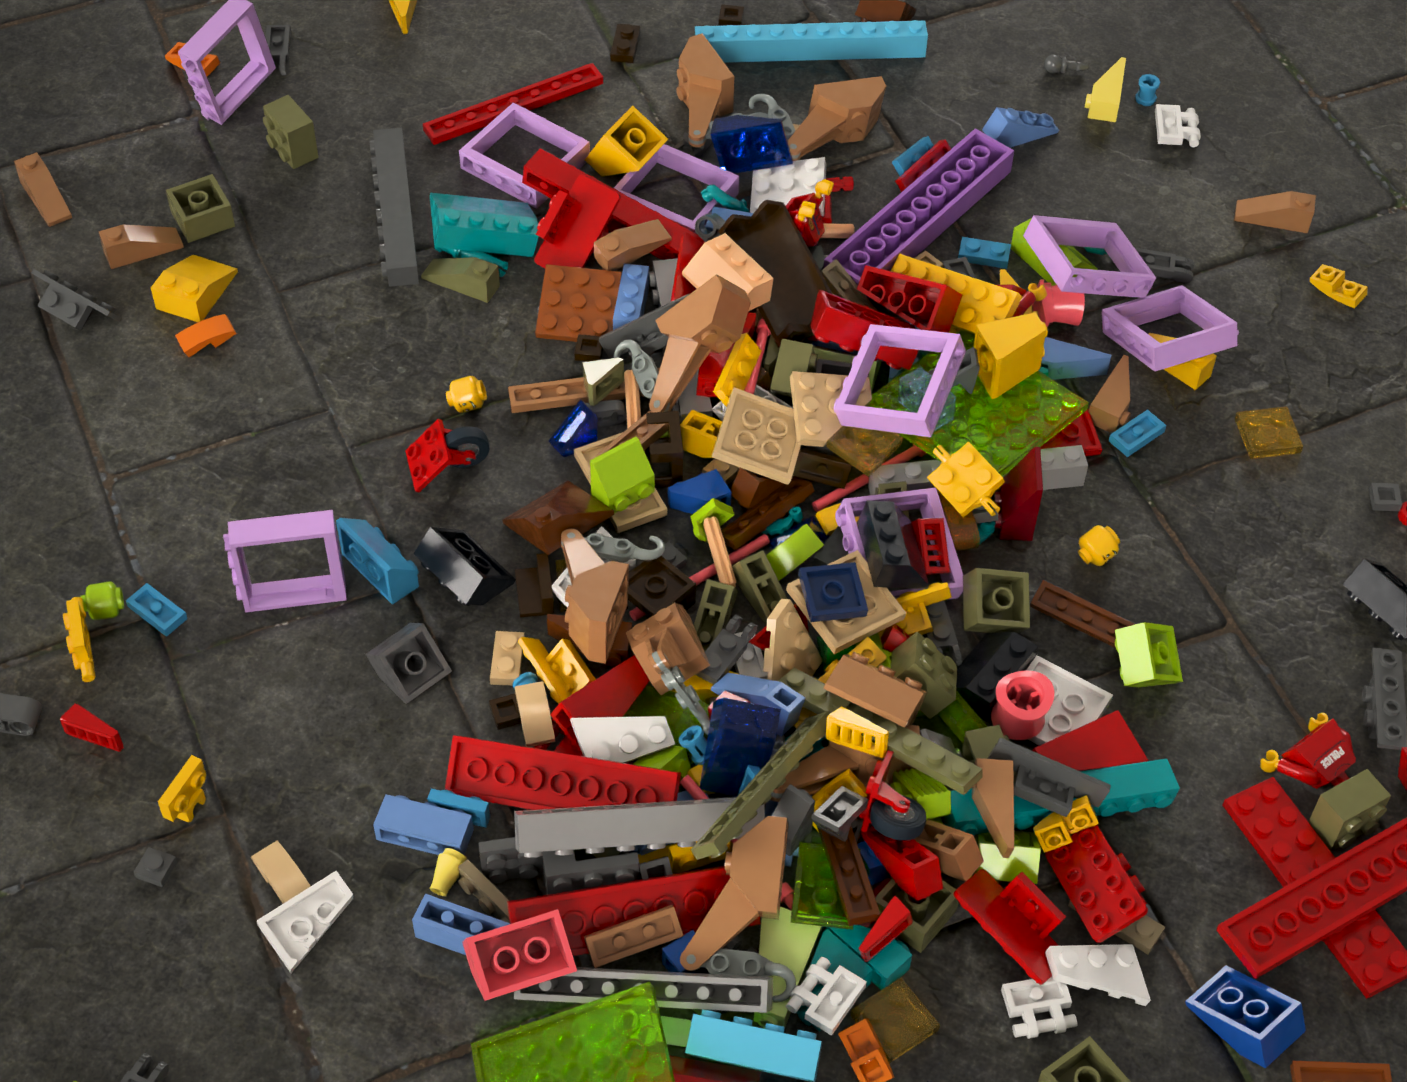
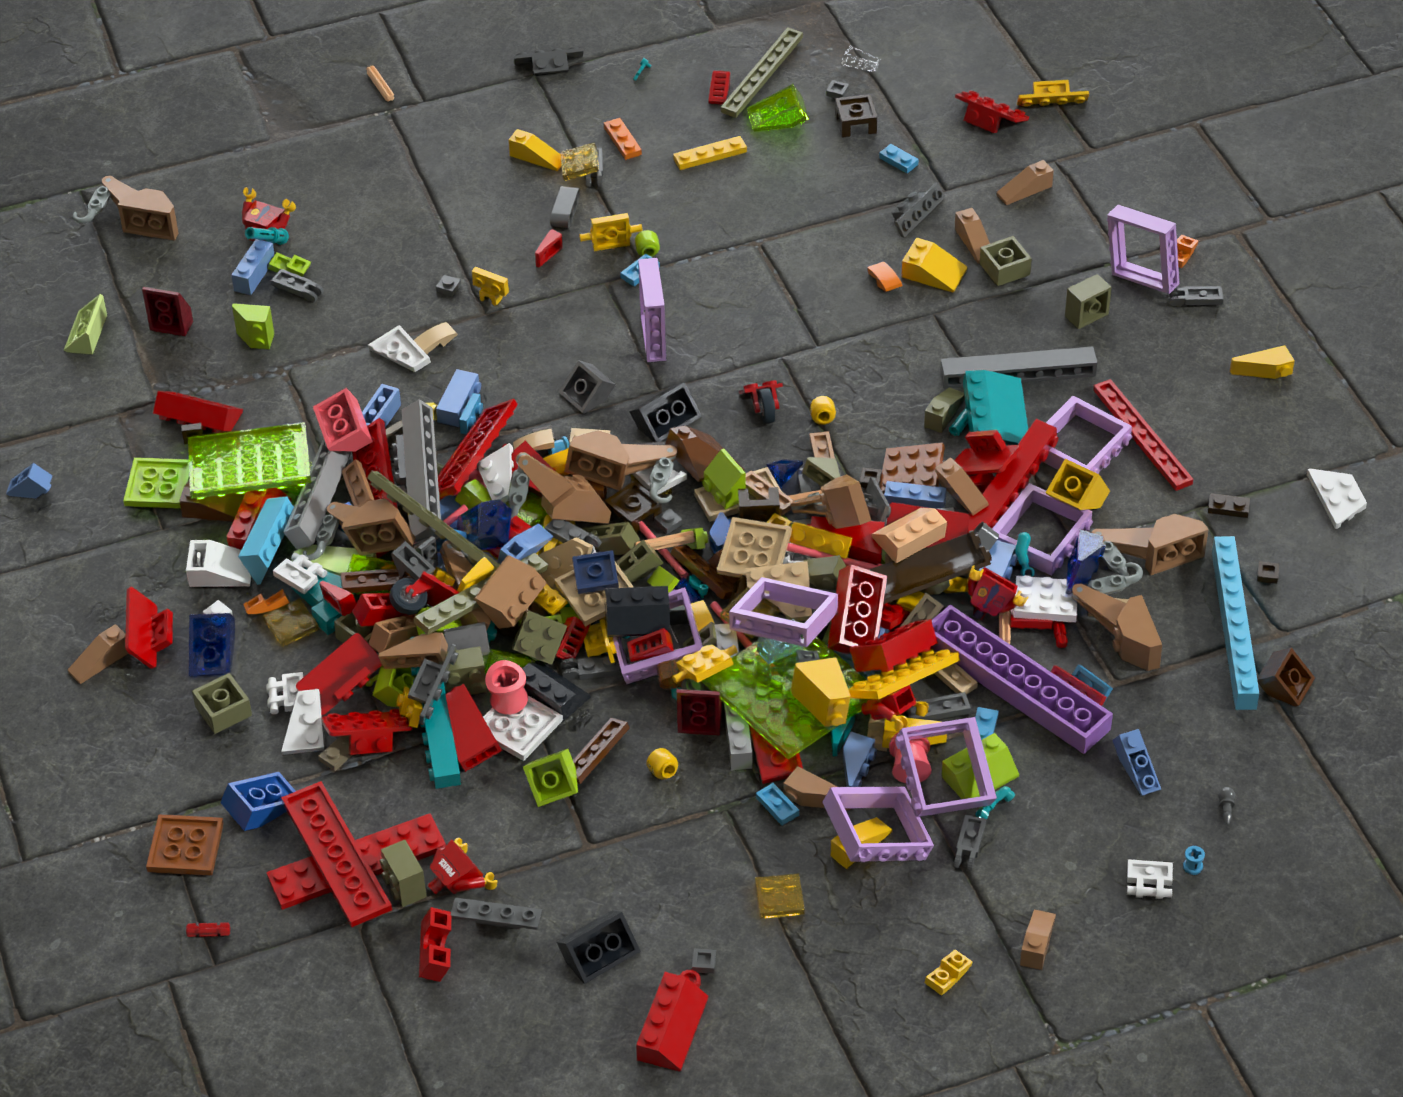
camera: 95 degrees right, 5 degrees down
(377, 559) = (670, 364): dark azure slope -> none
(996, 601) = (603, 686): olive brick -> none
(1106, 94) = (1187, 830): light yellow slope -> none

